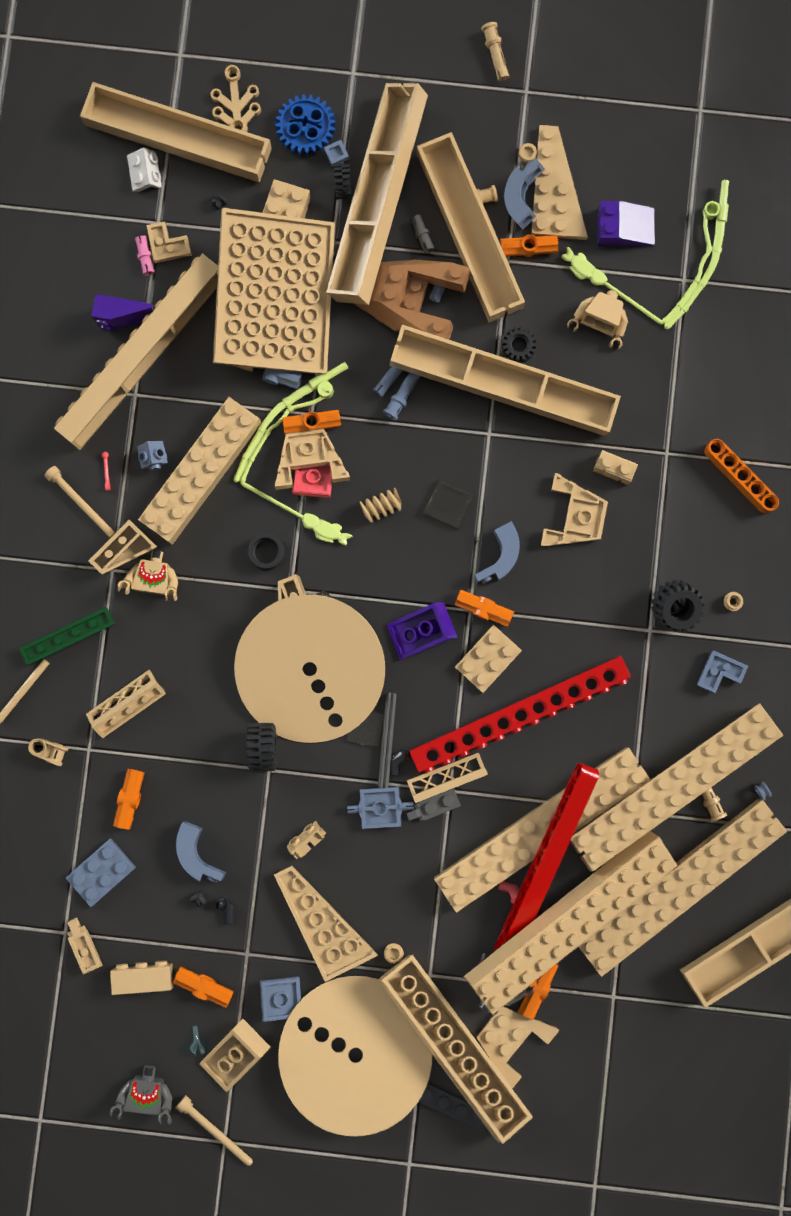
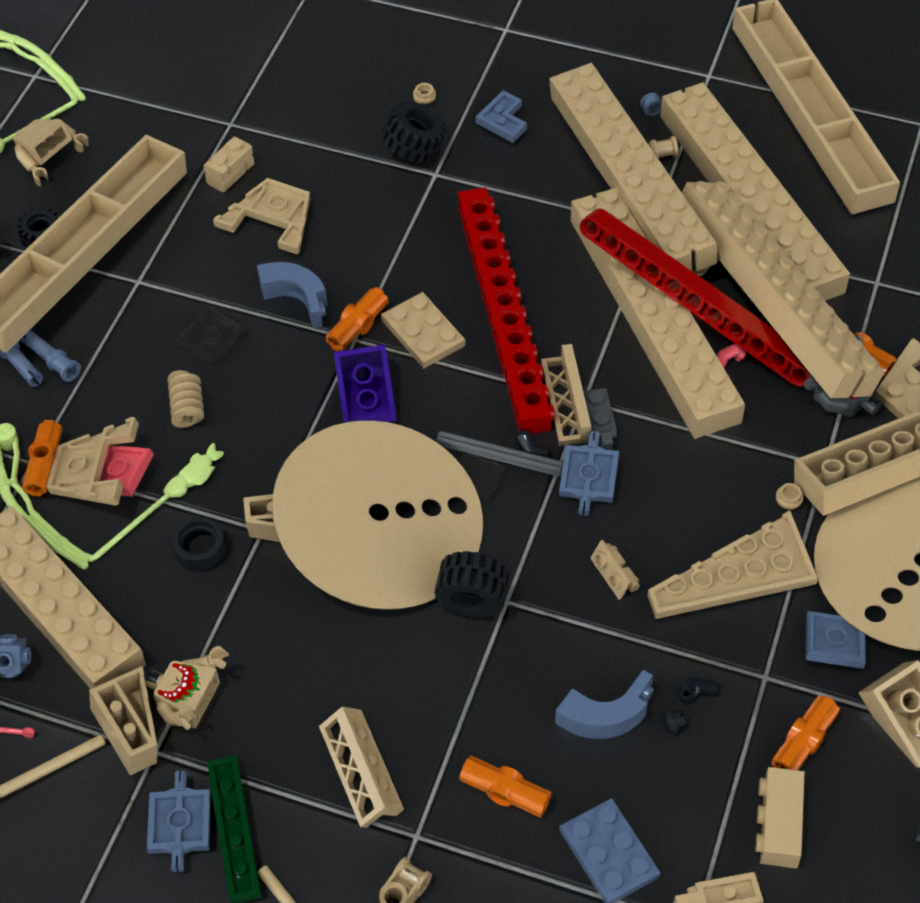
camera: 80 degrees left, 30 degrees down
(65, 601) = (179, 821): none -> sand blue plate
(196, 1044) = (889, 761): clear light blue hand -> none
(750, 478) = (282, 61): orange beam -> none

